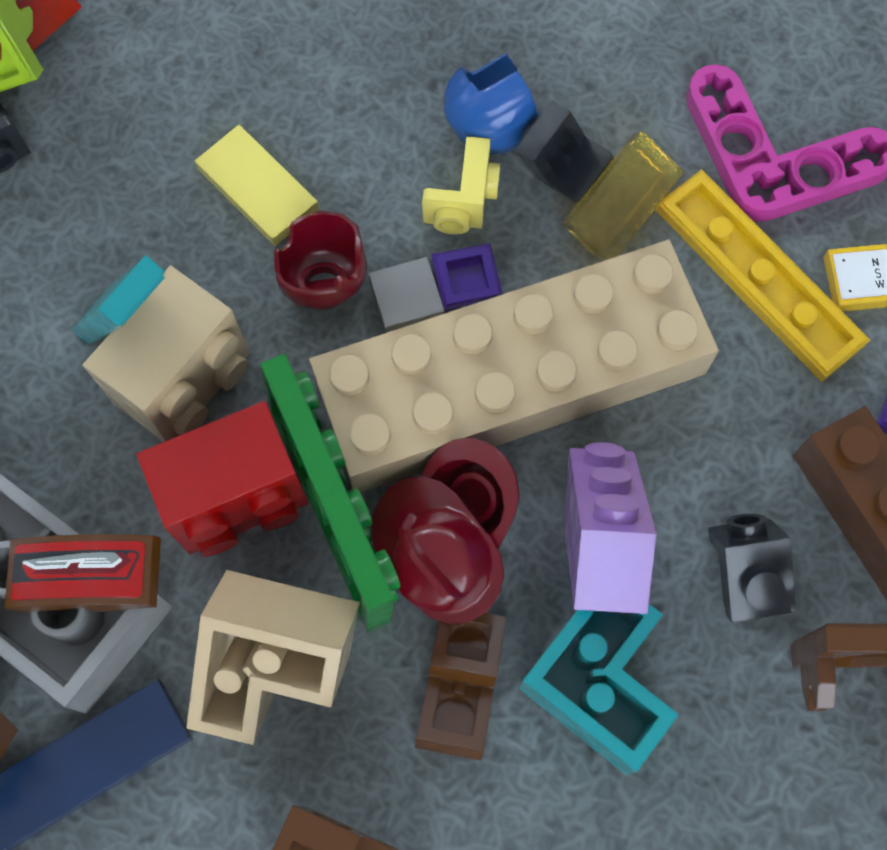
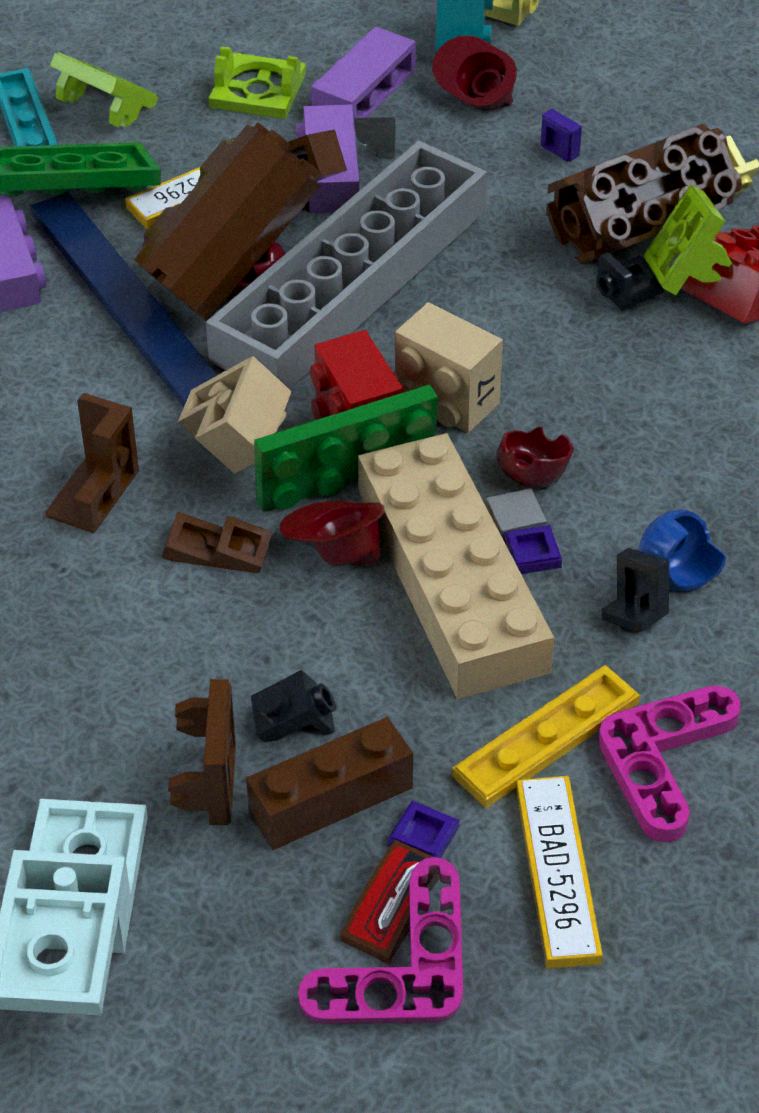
camera: 90 degrees right, 25 degrees down
(83, 572) = (288, 316): slope -> none
(119, 301) = (467, 301): teal tile -> none
(256, 184) = (606, 428): light yellow tile -> none
(438, 550) = (300, 507): dark red piece -> none
(464, 209) = (602, 540): light yellow bracket -> none
(591, 695) = (210, 593): teal brick -> none
(608, 530) = (313, 577): medium lavender brick -> none
(623, 197) = (606, 637): clear yellow tile -> none

